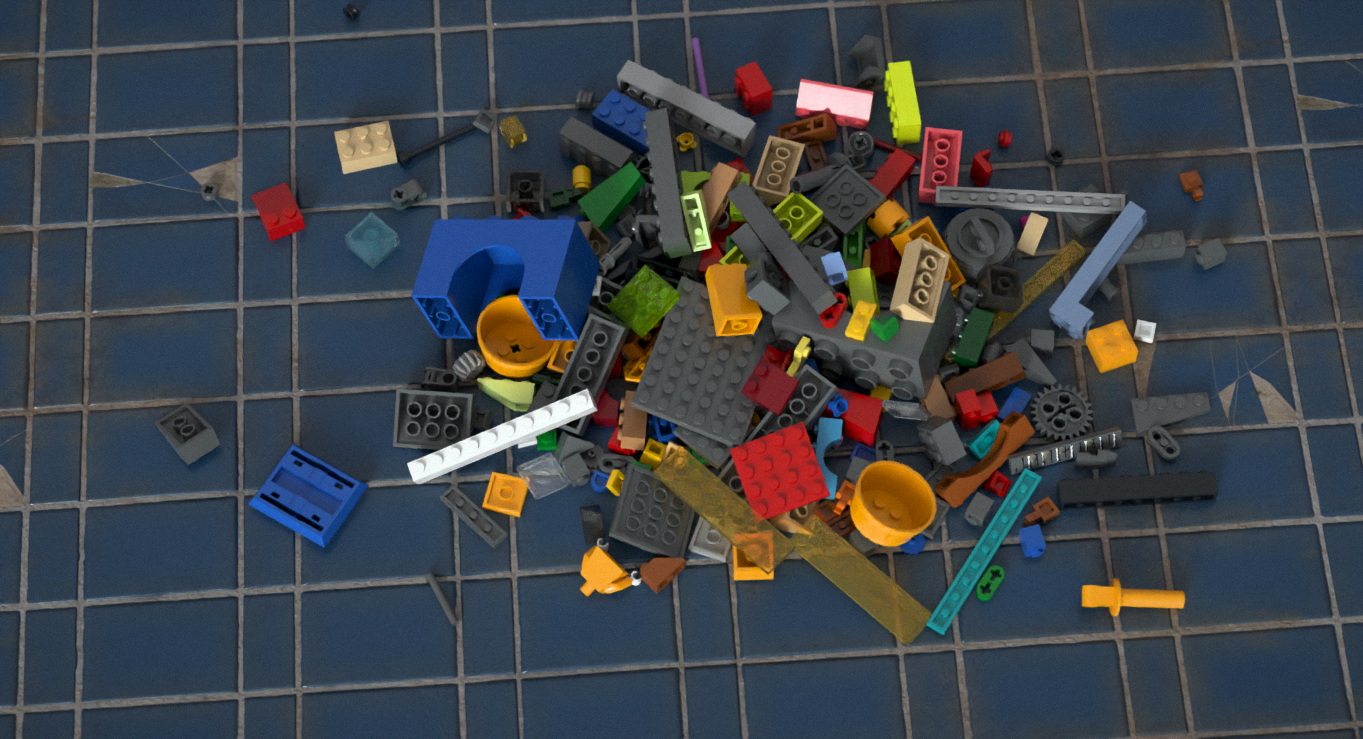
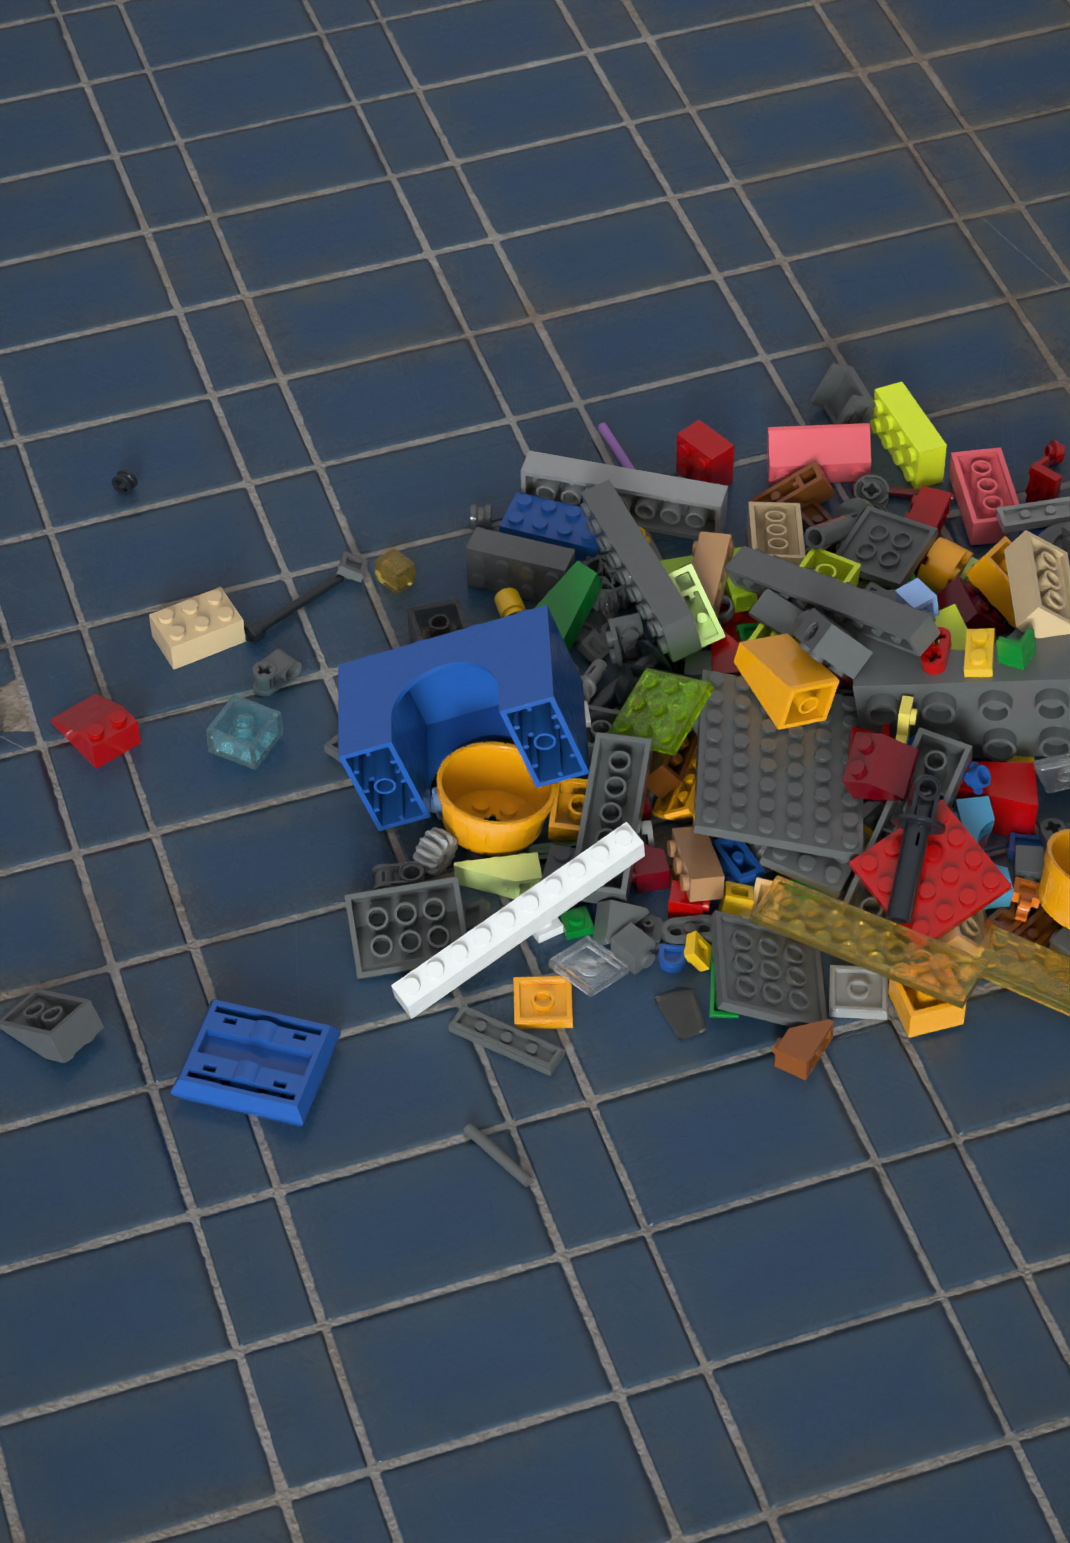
camera: 15 degrees left, 15 degrees down
(604, 572) = (724, 1064): light orange torso -> none
(613, 383) = (646, 833): none -> light grey tile
(777, 440) = (918, 825): none -> black piece

